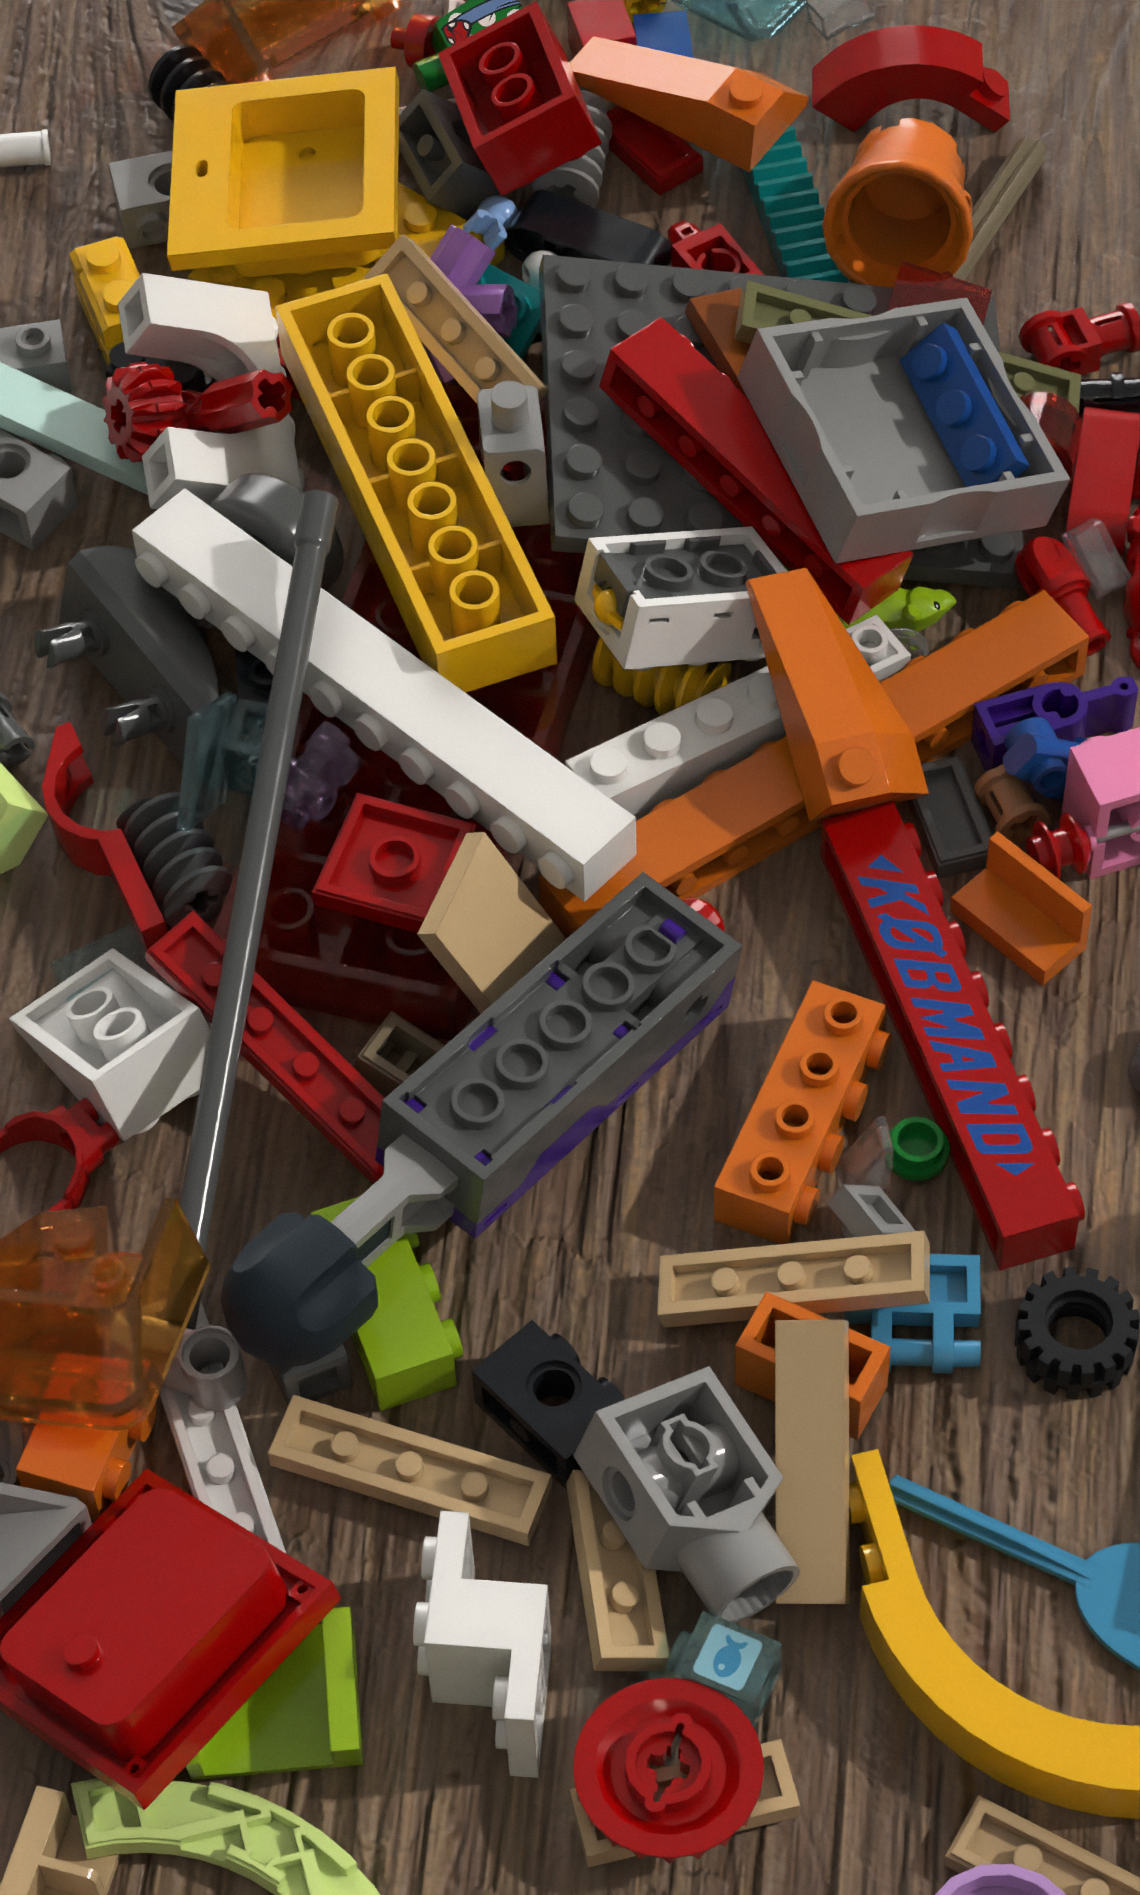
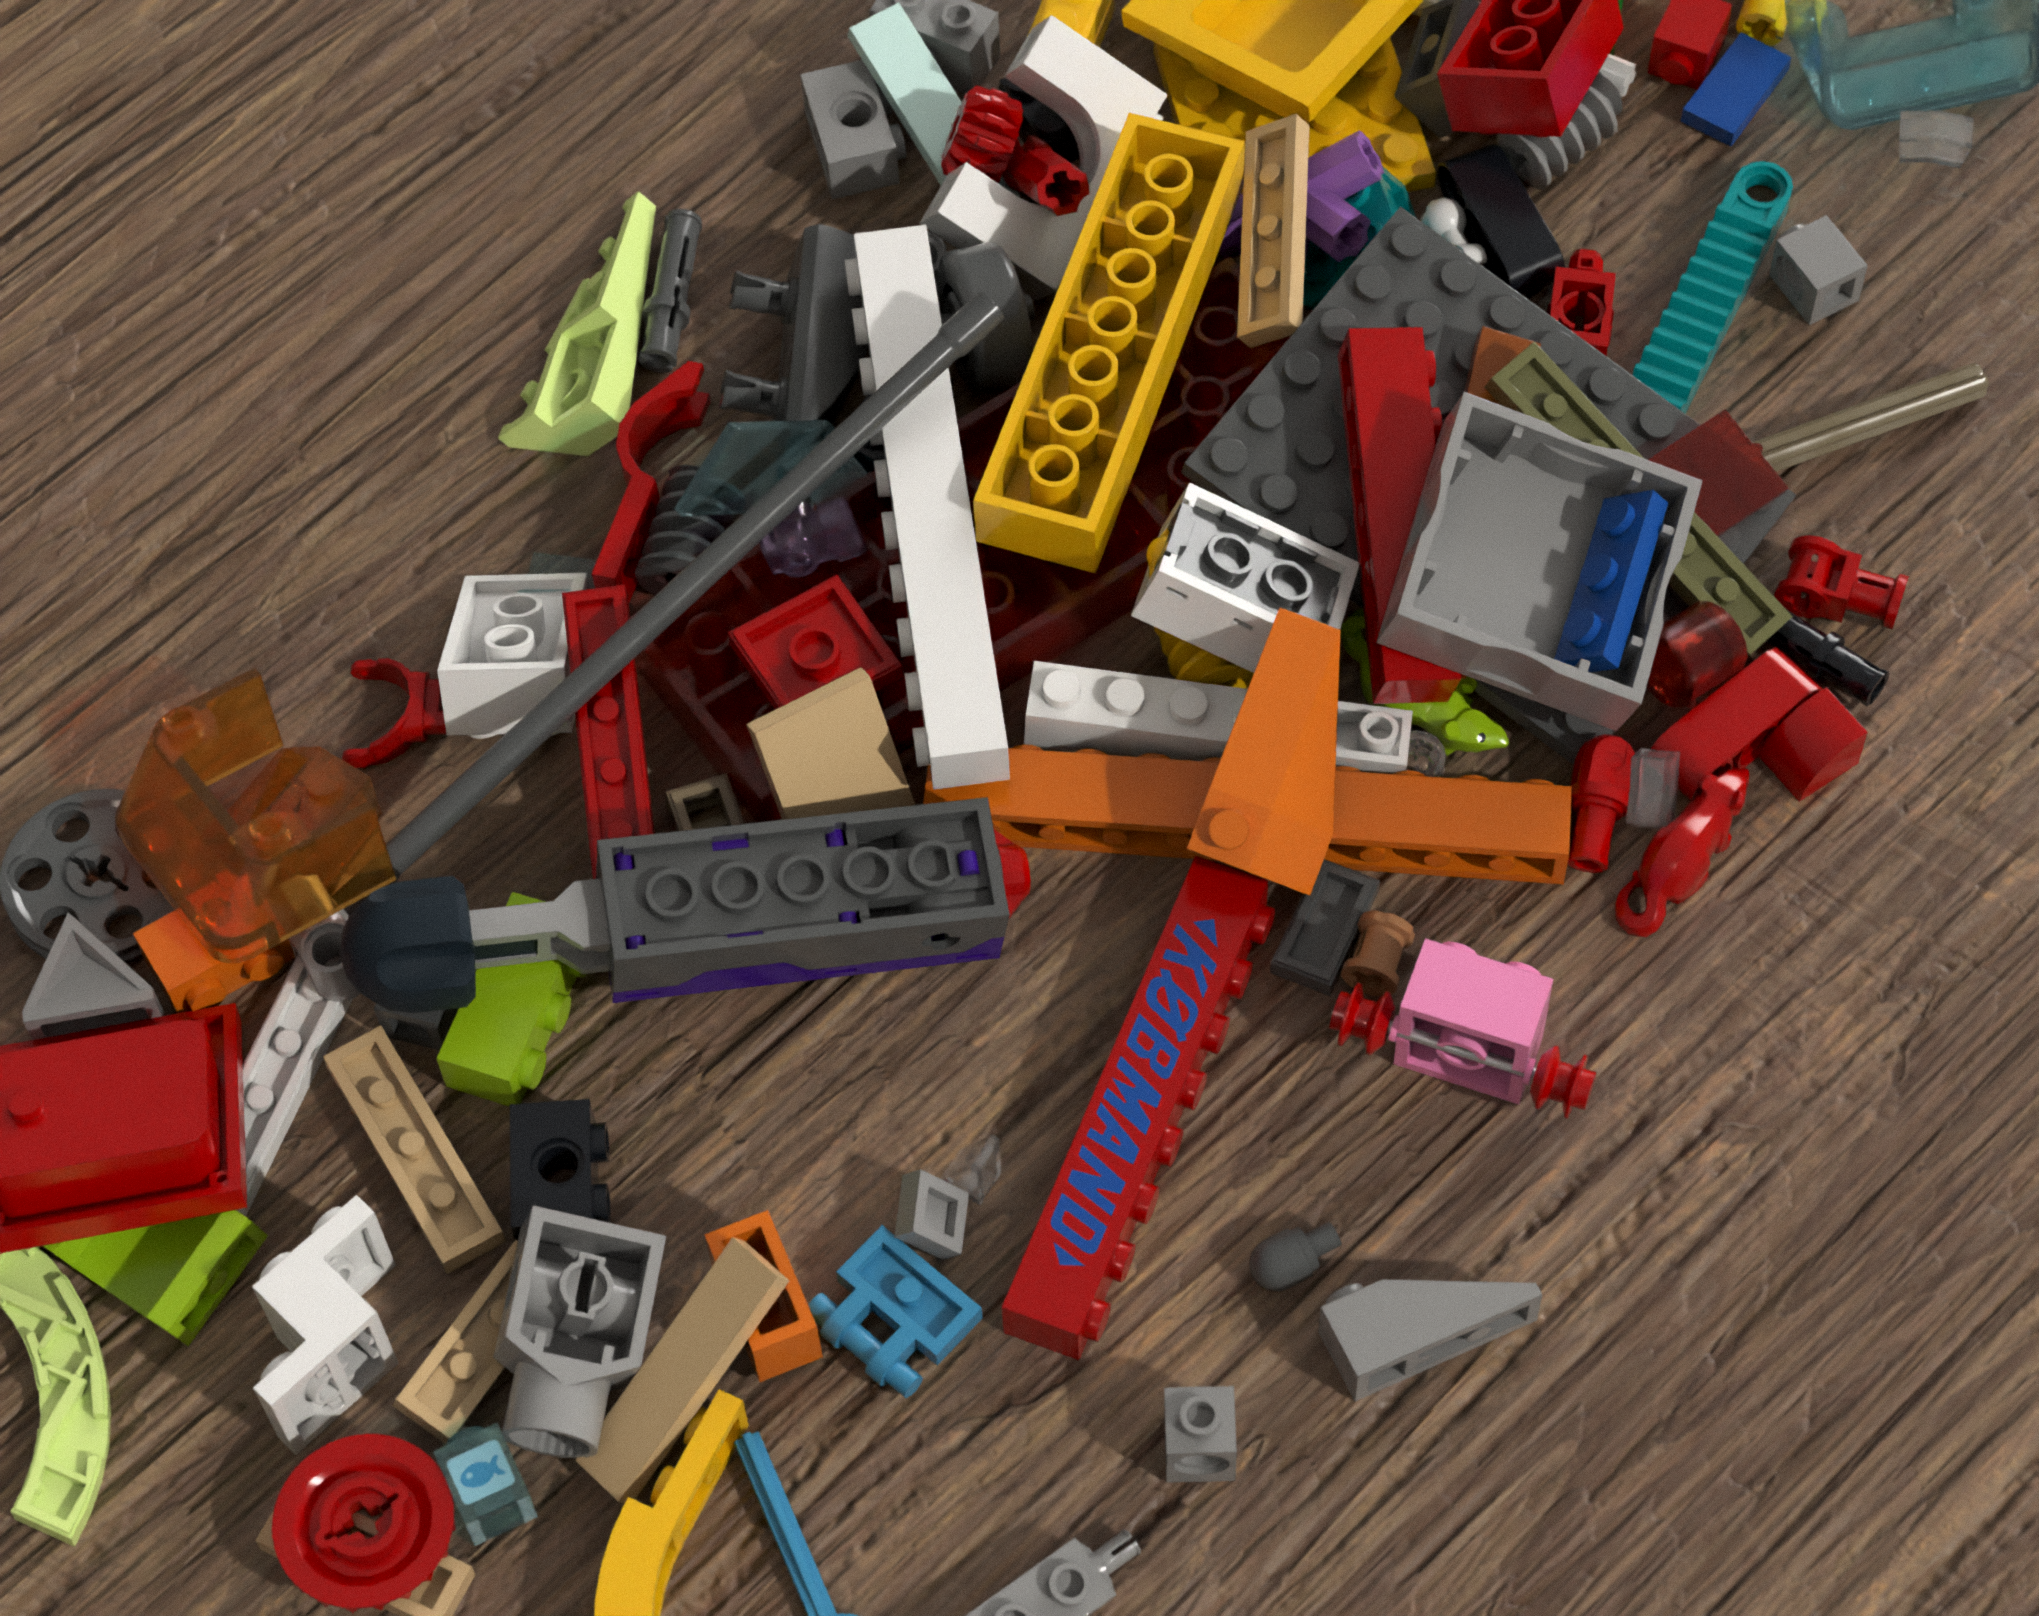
camera: 40 degrees right, 5 degrees up
(492, 219) = (1433, 150): light blue arm -> none
(513, 432) = (1221, 352): light grey torso -> none
(652, 152) = (1645, 162): red tile -> none
(704, 102) = (1707, 149): orange wedge -> none
(800, 1113) = (960, 1087): orange brick -> none
(811, 1274) = (817, 1218): tan plate -> none
(840, 131) = (1817, 269): none -> light grey brick
(900, 205) = (1776, 356): orange piece -> none
(908, 65) = (1929, 239): red arch -> none
(918, 1149) = (1024, 1184): green plate -> none
(1024, 911) = (1296, 1054): orange panel -> none
(1038, 756) = (1421, 916): blue plate -> none
(1062, 704) = (1442, 900): dark purple piece -> none
(1083, 1298) = (992, 1390): black tyre -> none

